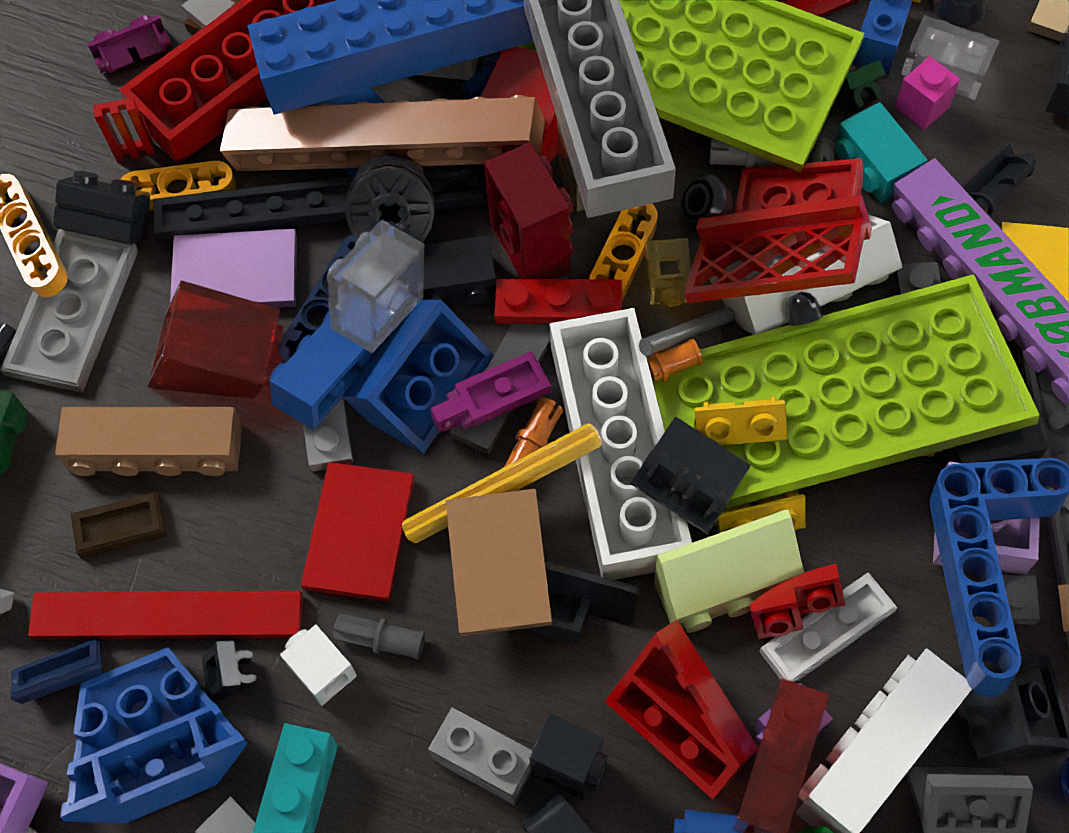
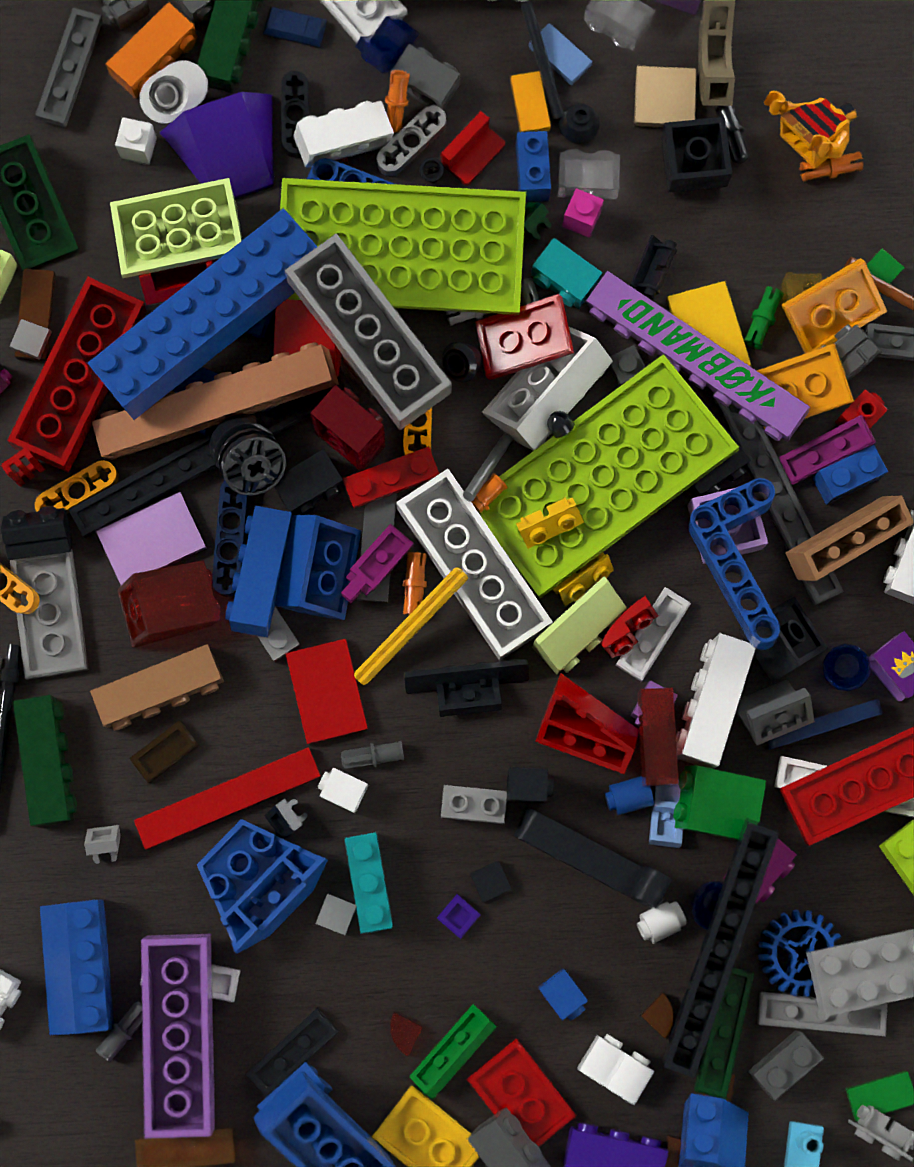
camera: 30 degrees left, 15 degrees up
(56, 672) = (176, 863): dark blue tile -> none
(375, 285) = (271, 527): clear brick -> none
(498, 562) = (432, 680): medium nougat tile -> none
(669, 288) = (462, 438): clear yellow window -> none
(690, 475) = (533, 574): black hinge -> none
(777, 232) = (524, 371): red fence -> none
(1022, 598) = (762, 566): dark grey plate -> none

